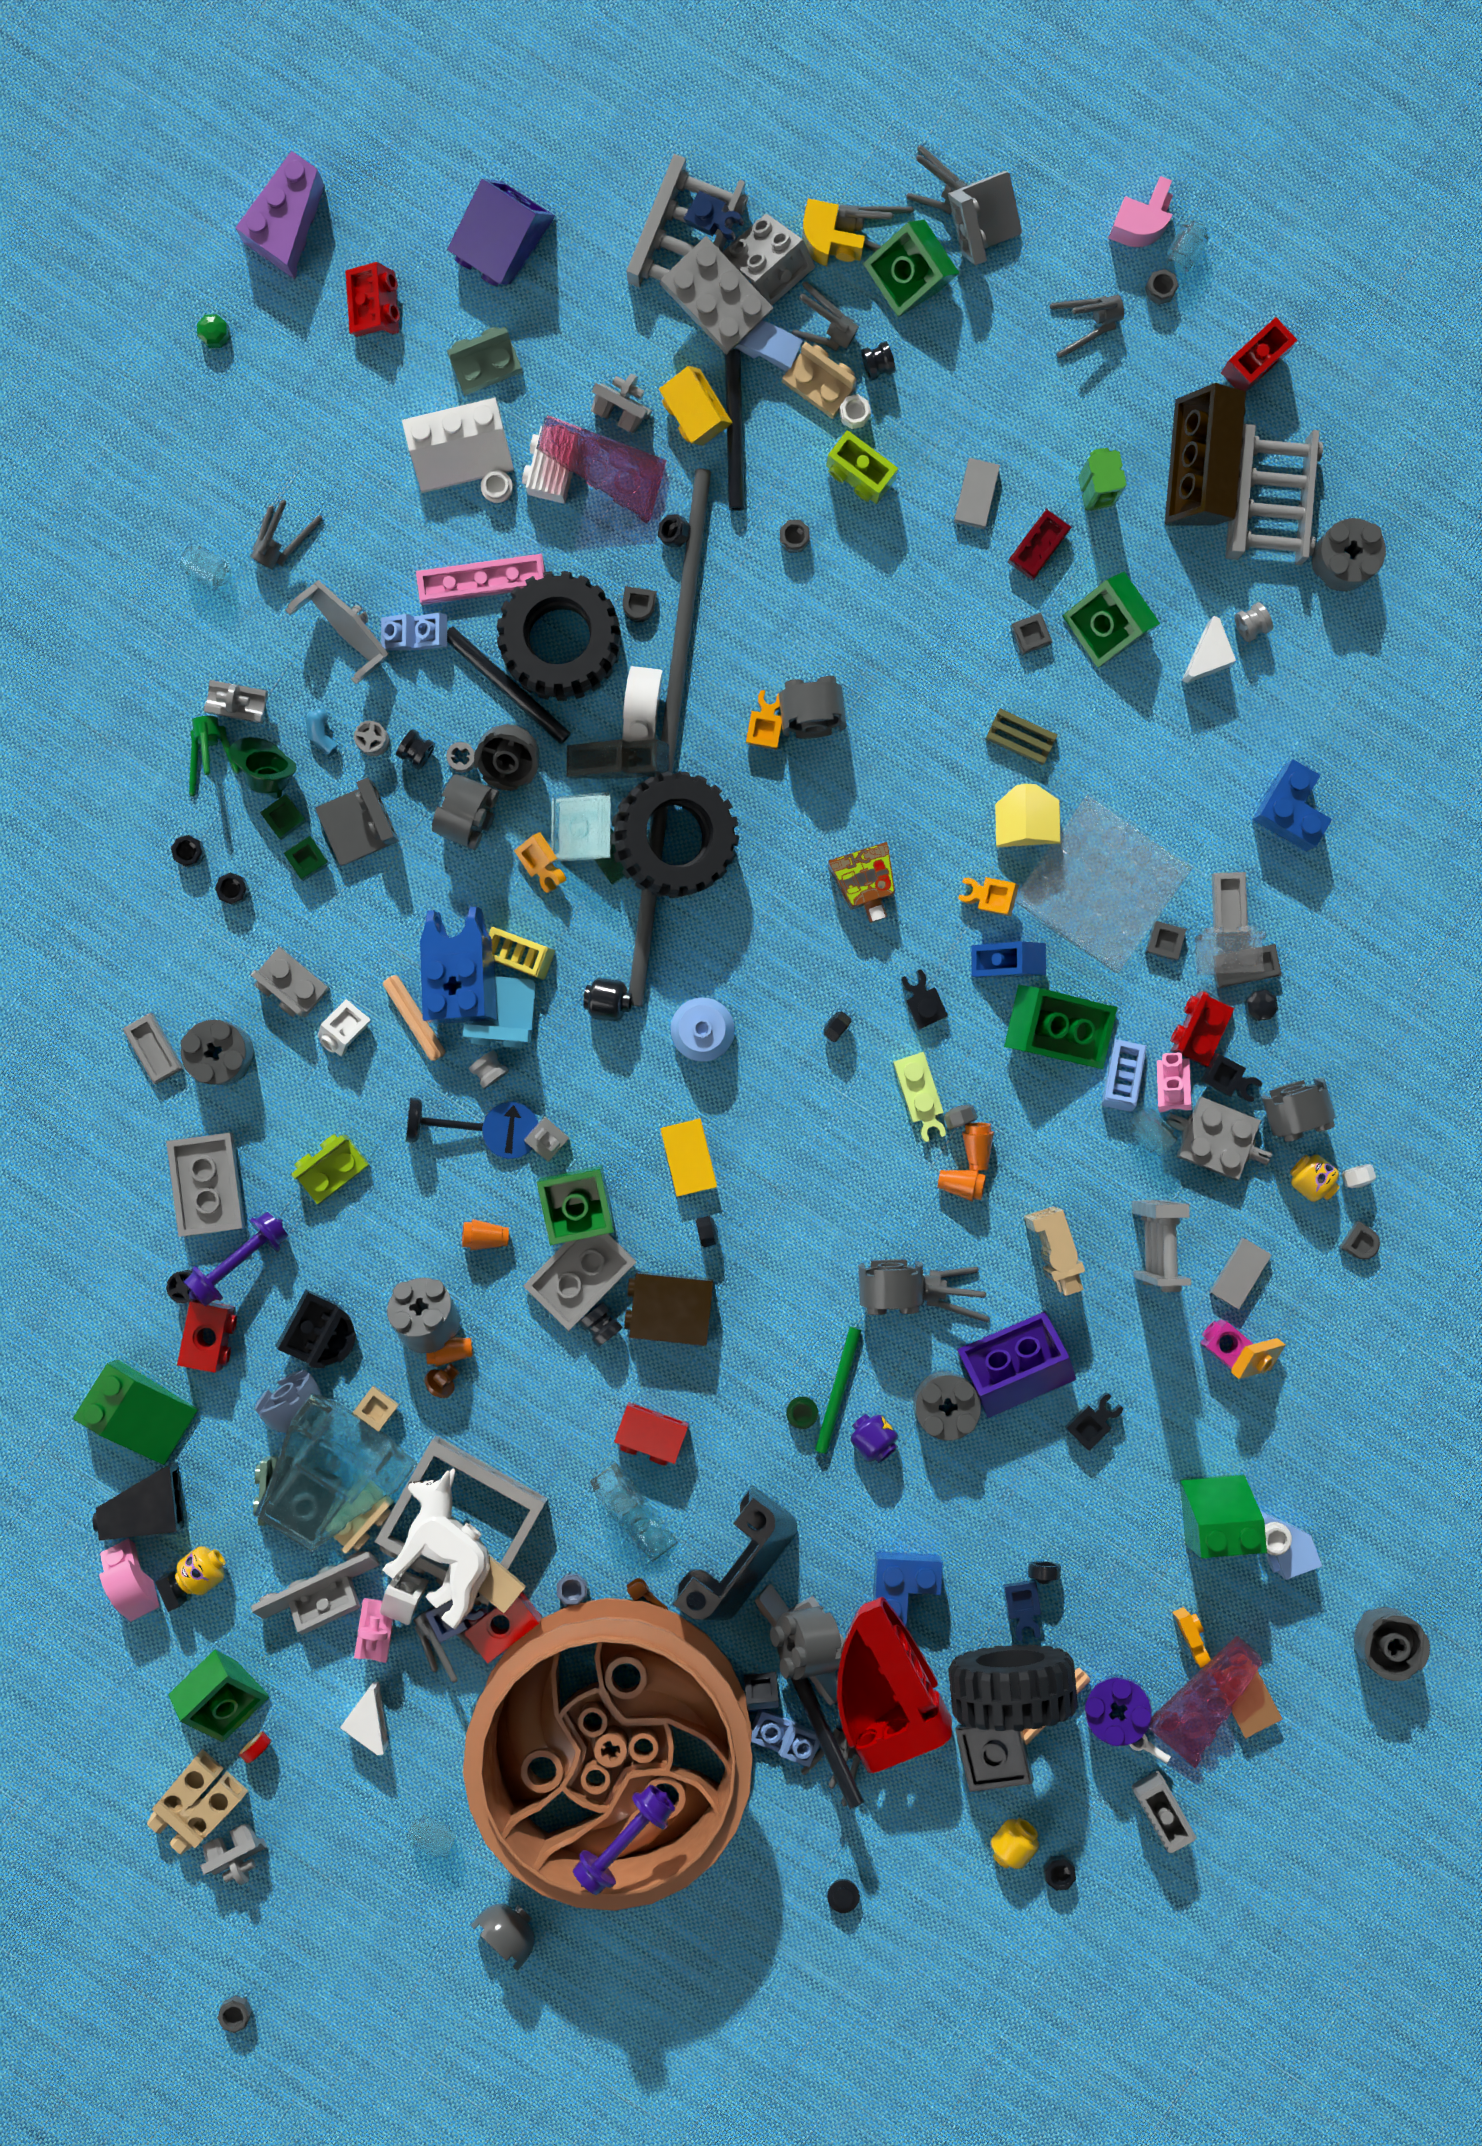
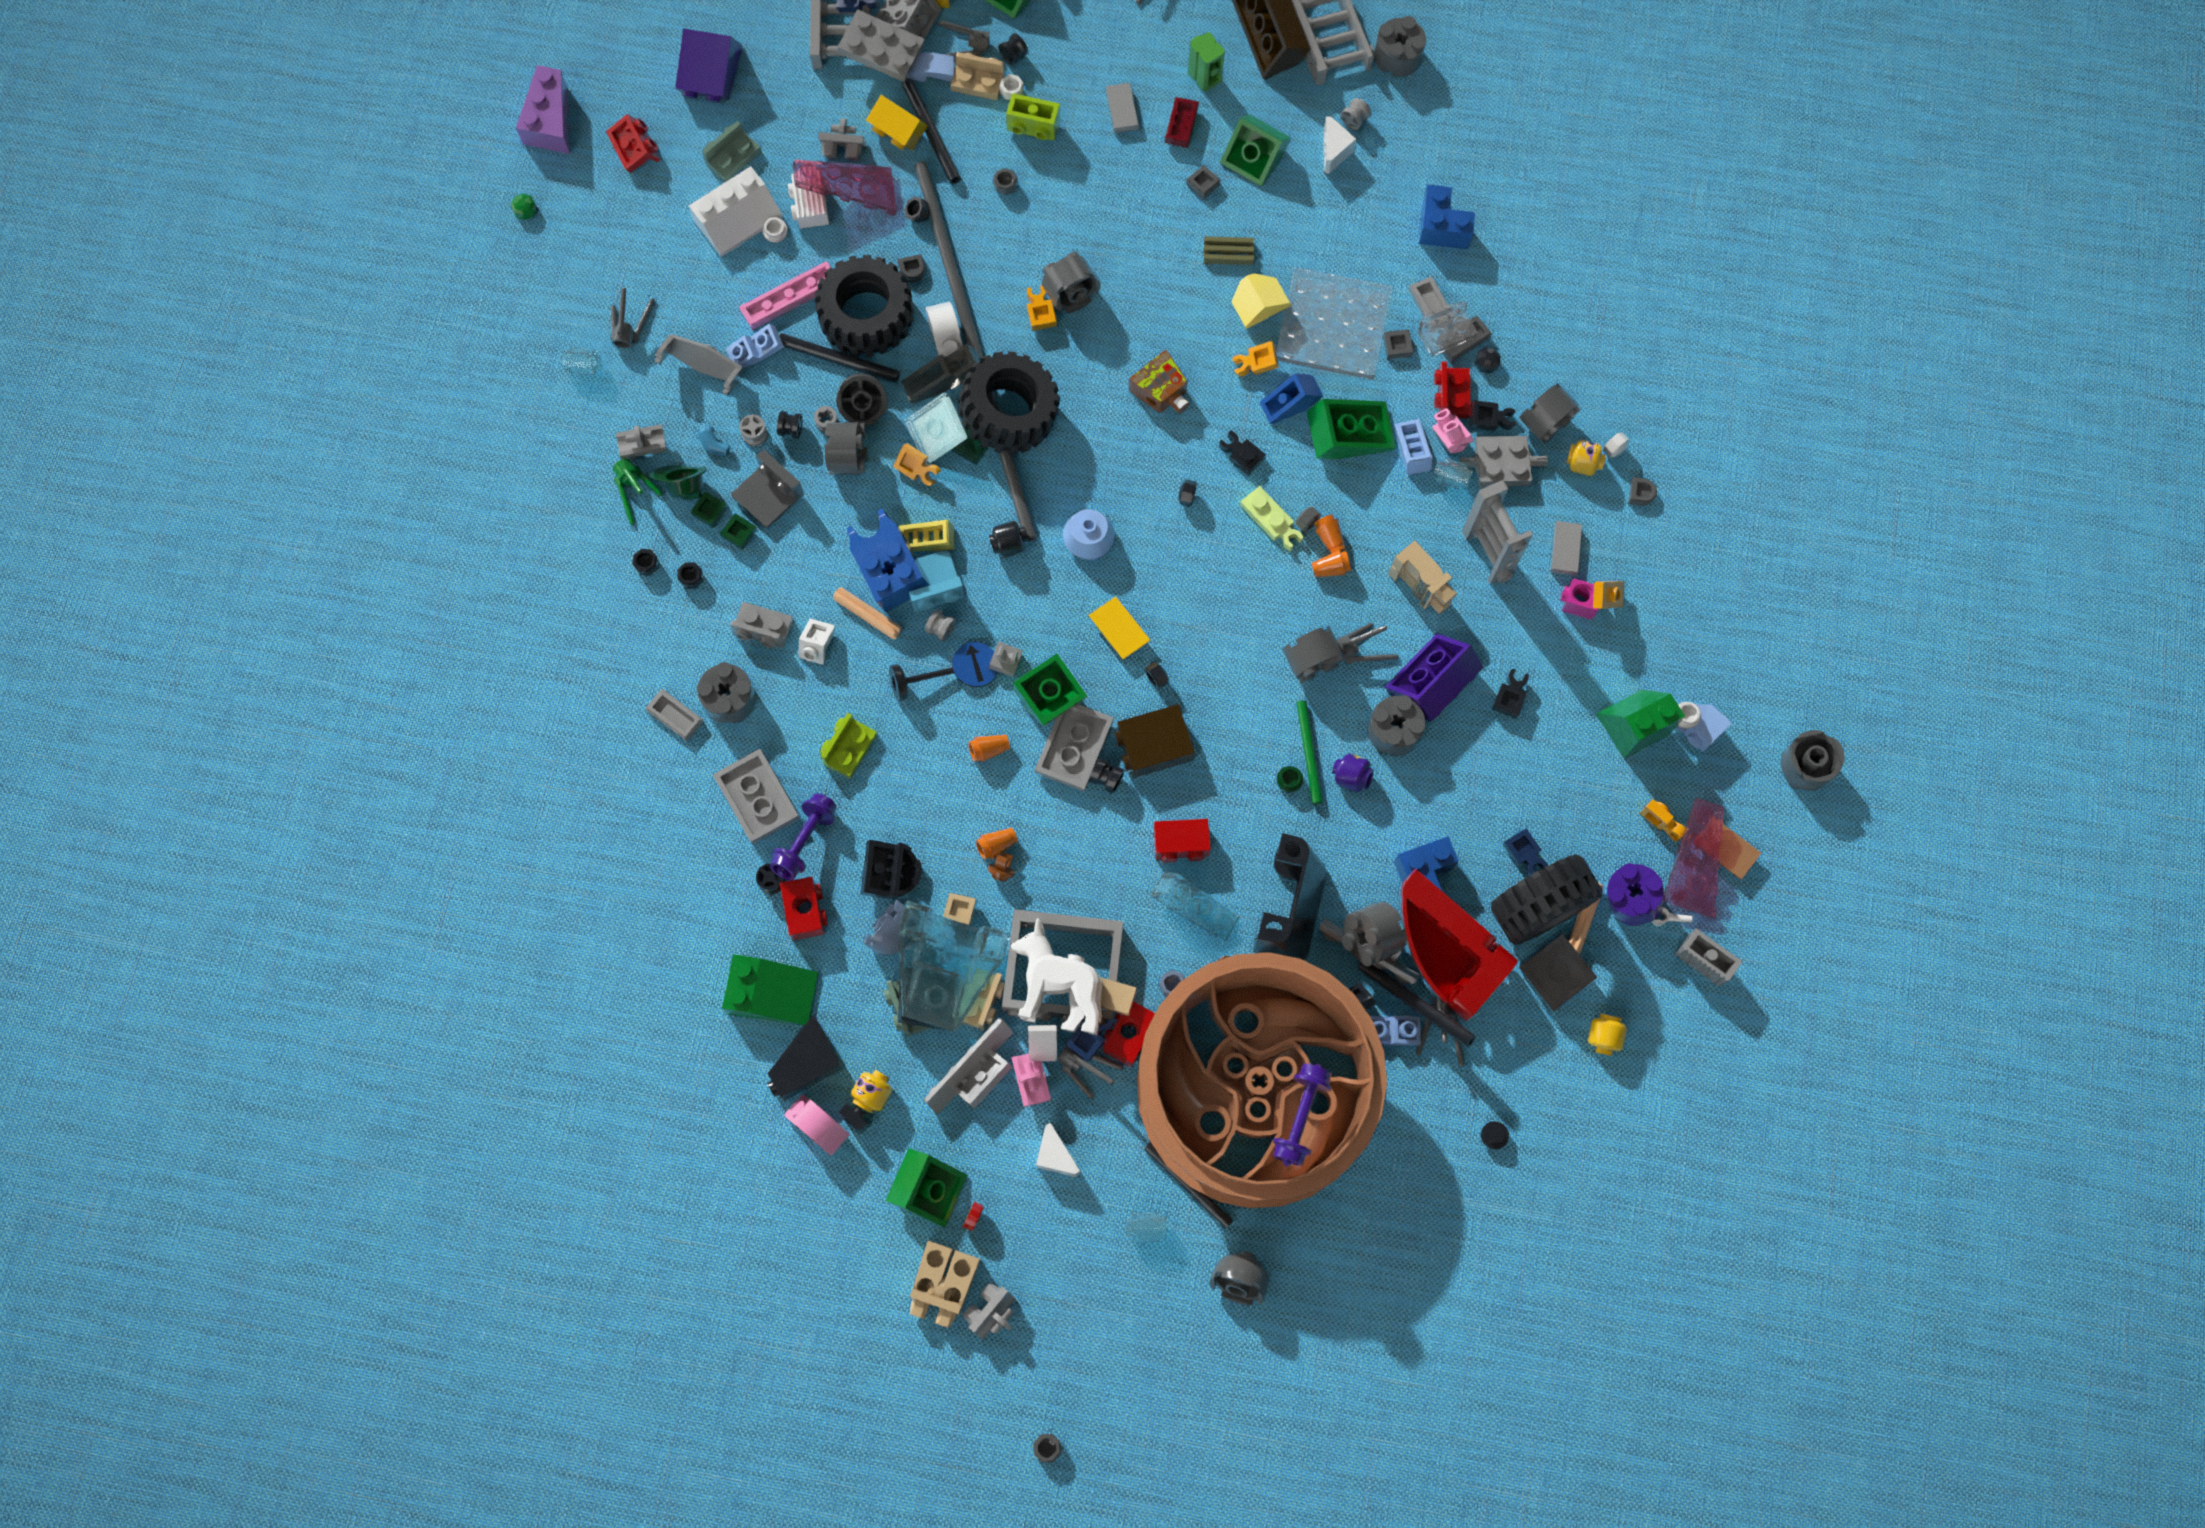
camera: 20 degrees left, 15 degrees down
(423, 1314) = (967, 817): brick -> none
(1044, 1571) = (1529, 818): black tile -> none
(1059, 1872) = (1652, 1044): black tile -> none

